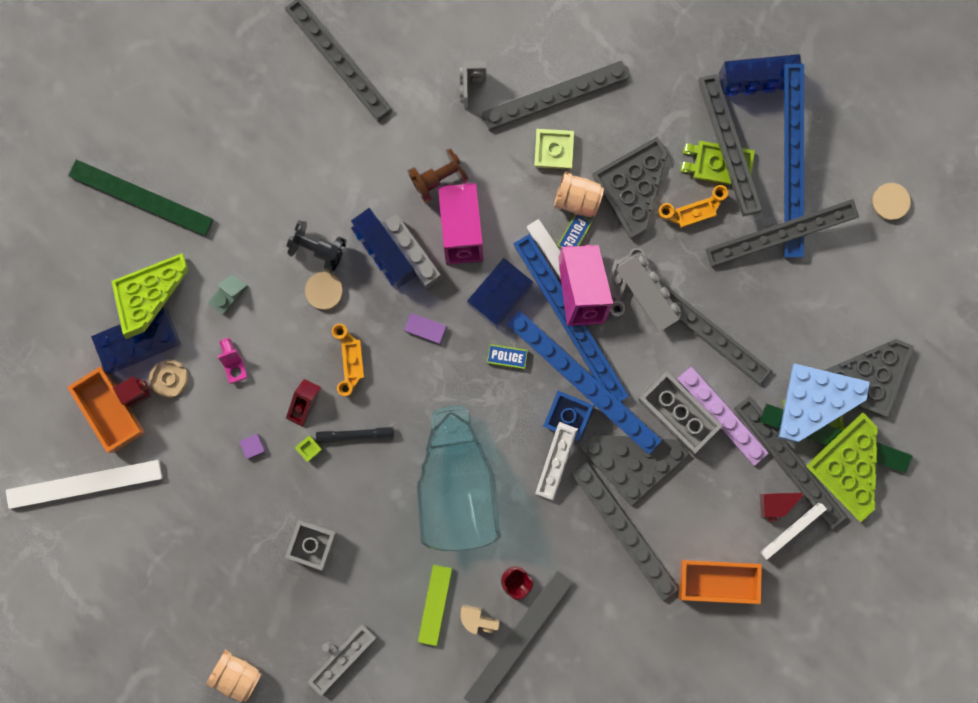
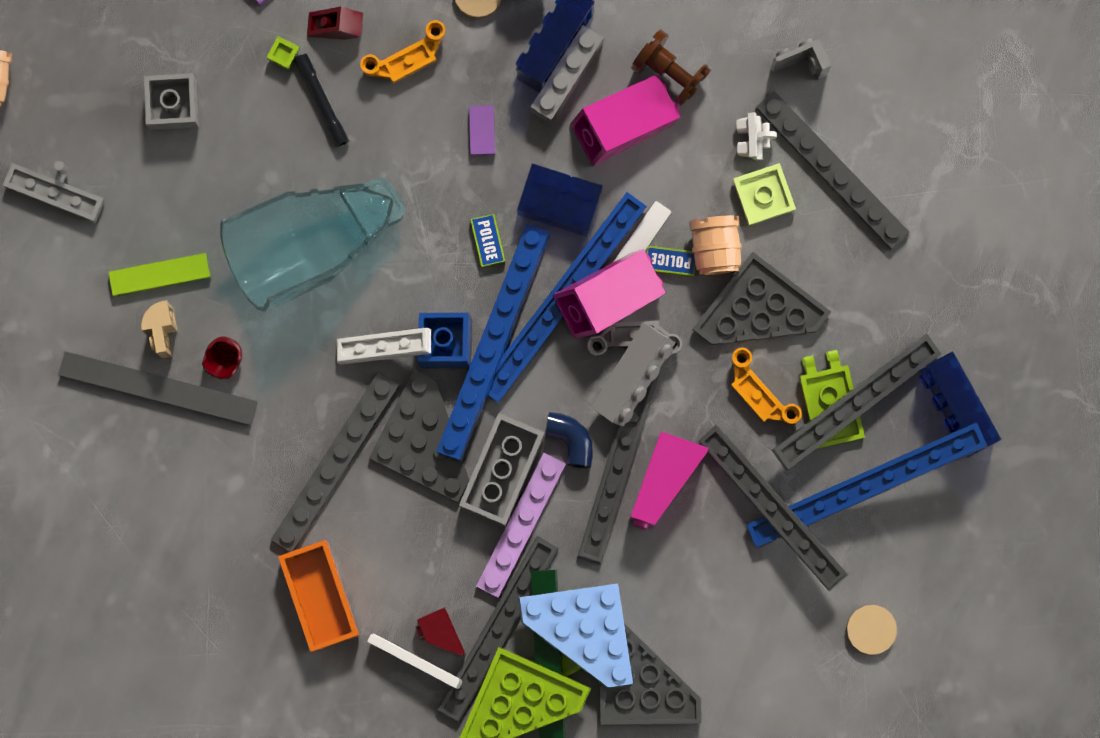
camera: 65 degrees right, 0 degrees up
(517, 142) = (757, 132): none -> white hips
(674, 351) = (576, 437): none -> dark blue cylinder
(732, 300) = (667, 472): none -> dark pink slope

